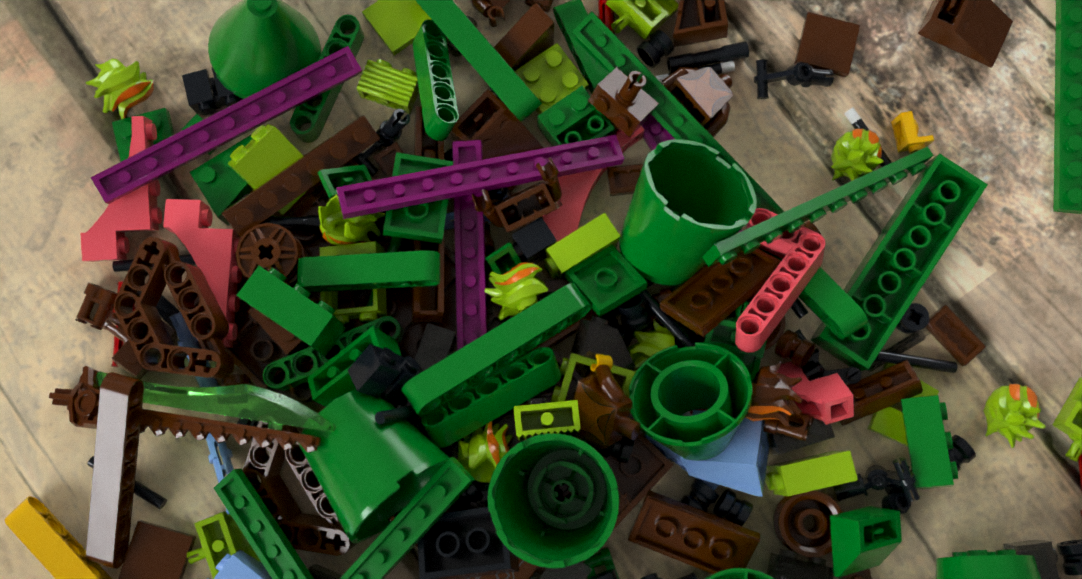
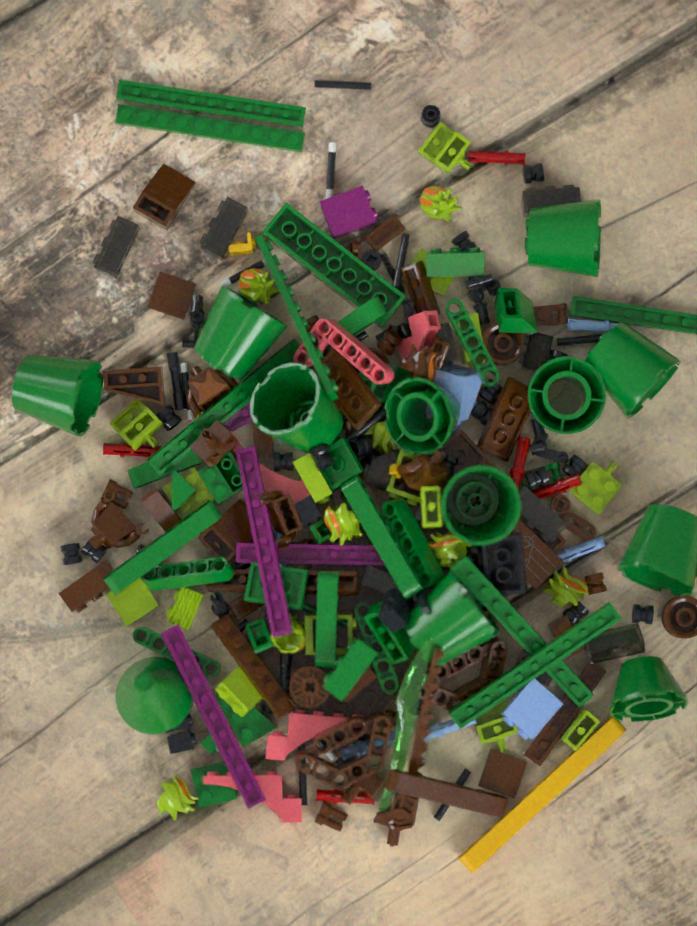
camera: 85 degrees left, 5 degrees up
(552, 62) = (181, 491): none -> green slope
(605, 202) = (283, 462): none -> black wheel
(614, 254) = (322, 457): none -> black wheel
(615, 557) = (517, 471): none -> red pin
(786, 123) = (236, 334): none -> green cone
(826, 468) = (471, 332): none -> green beam
(929, 292) = (355, 247): none -> reddish brown plate
(934, 106) = (223, 228): none -> clear smoke brick
(979, 281) = (348, 212): none -> magenta brick
(1033, 253) = (331, 170): none -> black bar

